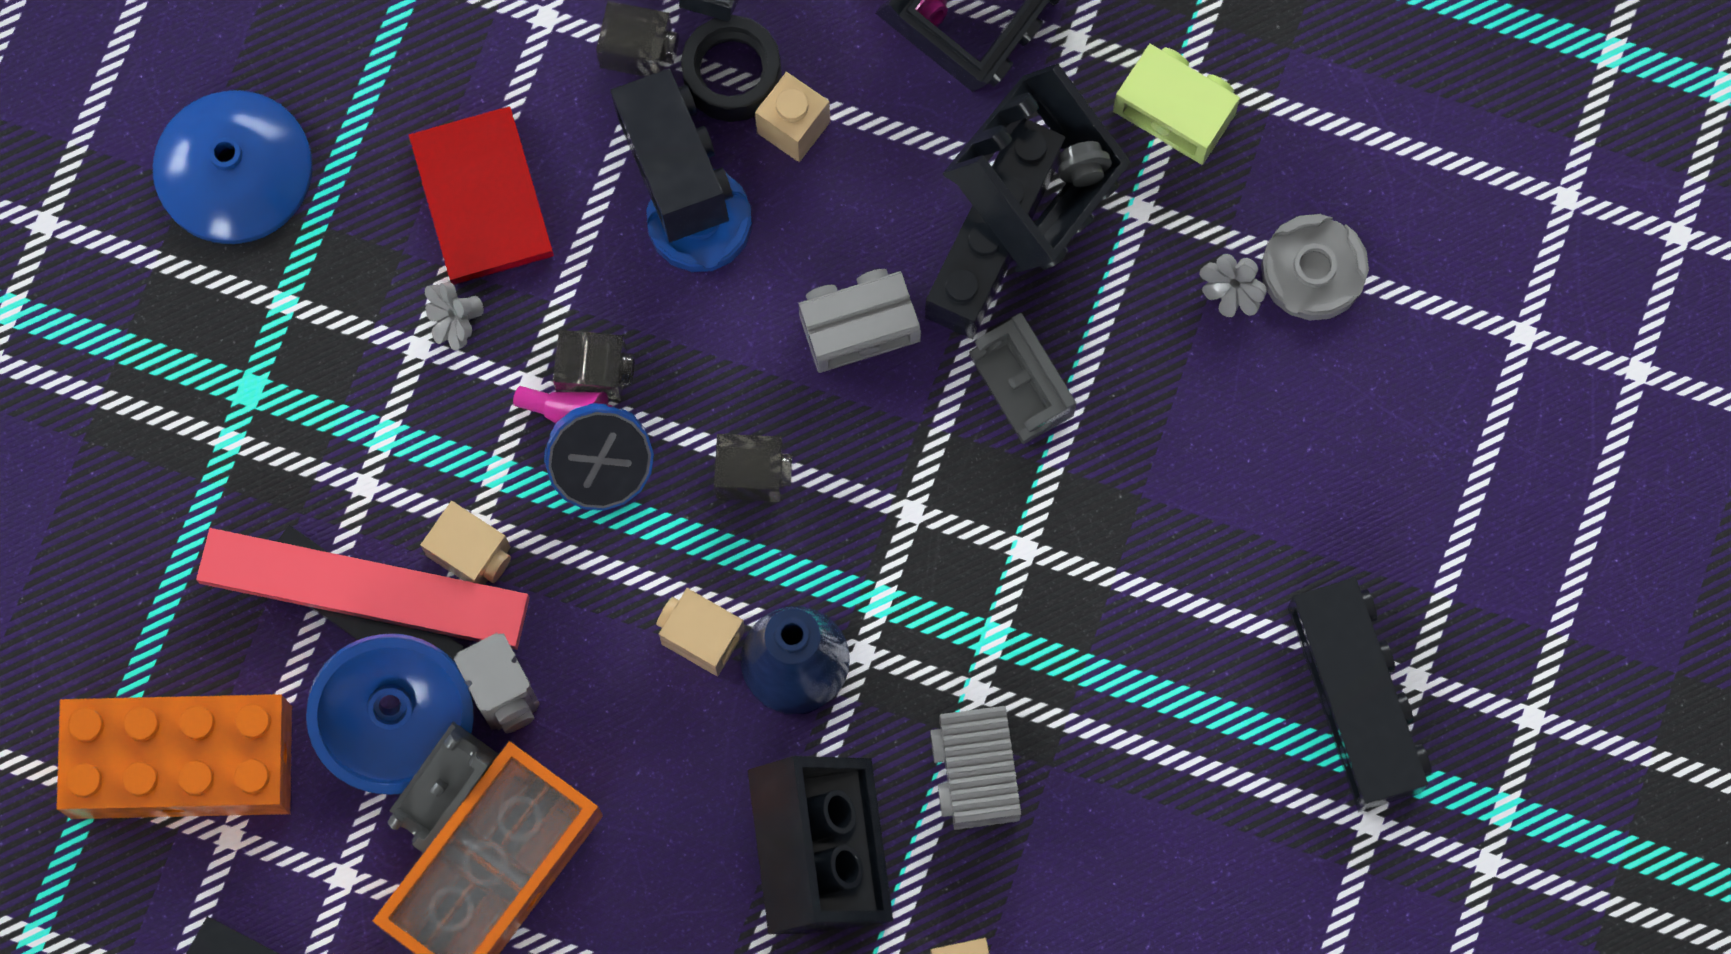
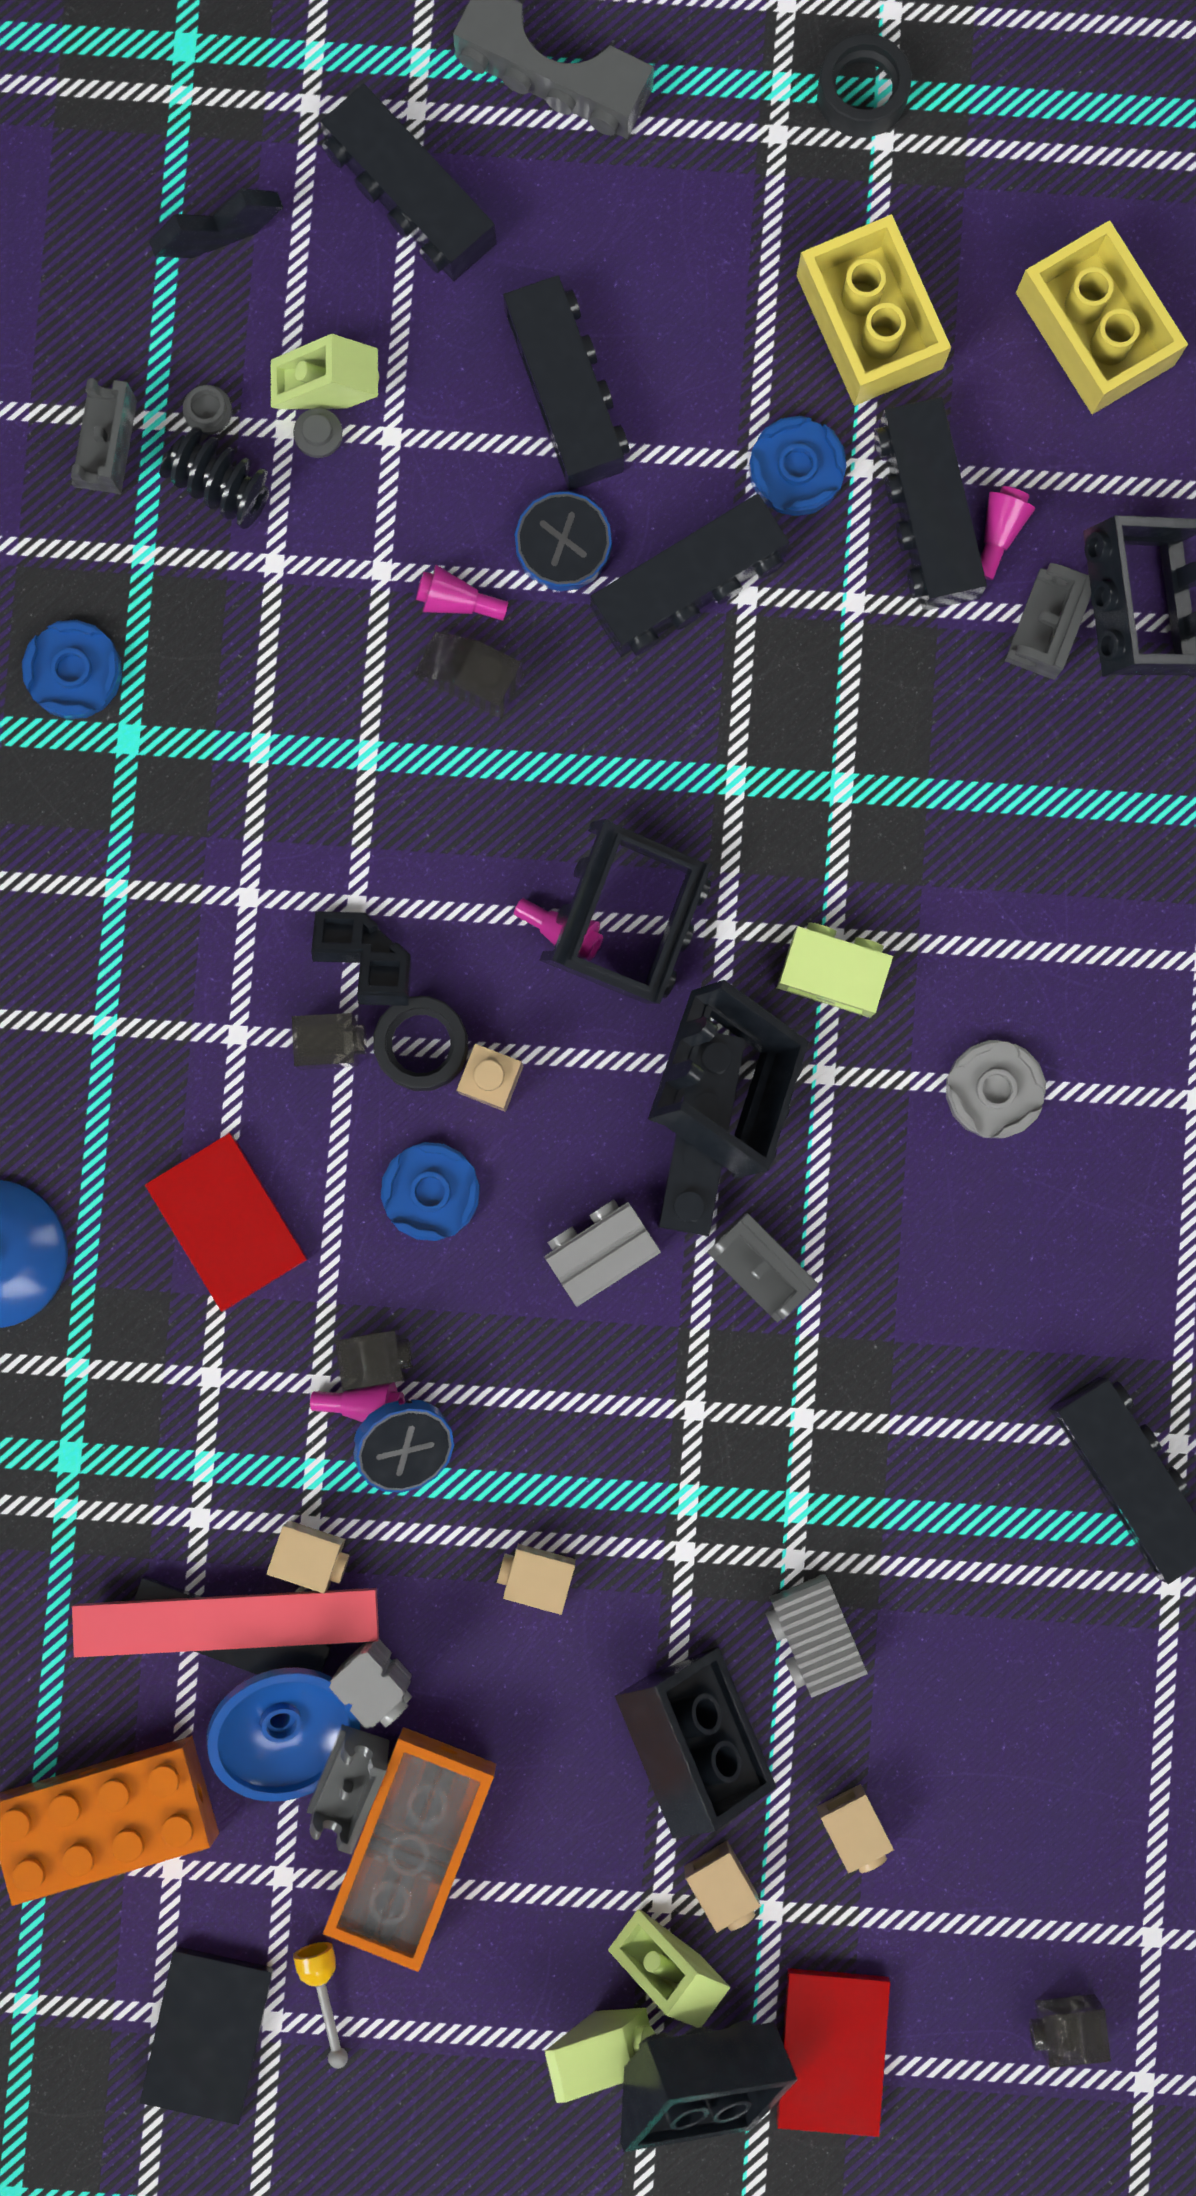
camera: 15 degrees left, 10 degrees up
(451, 314) = (232, 1343): light grey plant -> none
(672, 154) = (391, 1145): black brick -> none
(751, 468) = (542, 1416): clear smoke brick -> none
(795, 660) = (623, 1557): dark blue cone -> none
(1083, 164) = (768, 1059): dark grey plate -> none
(1233, 284) = (930, 1127): light grey plant -> none

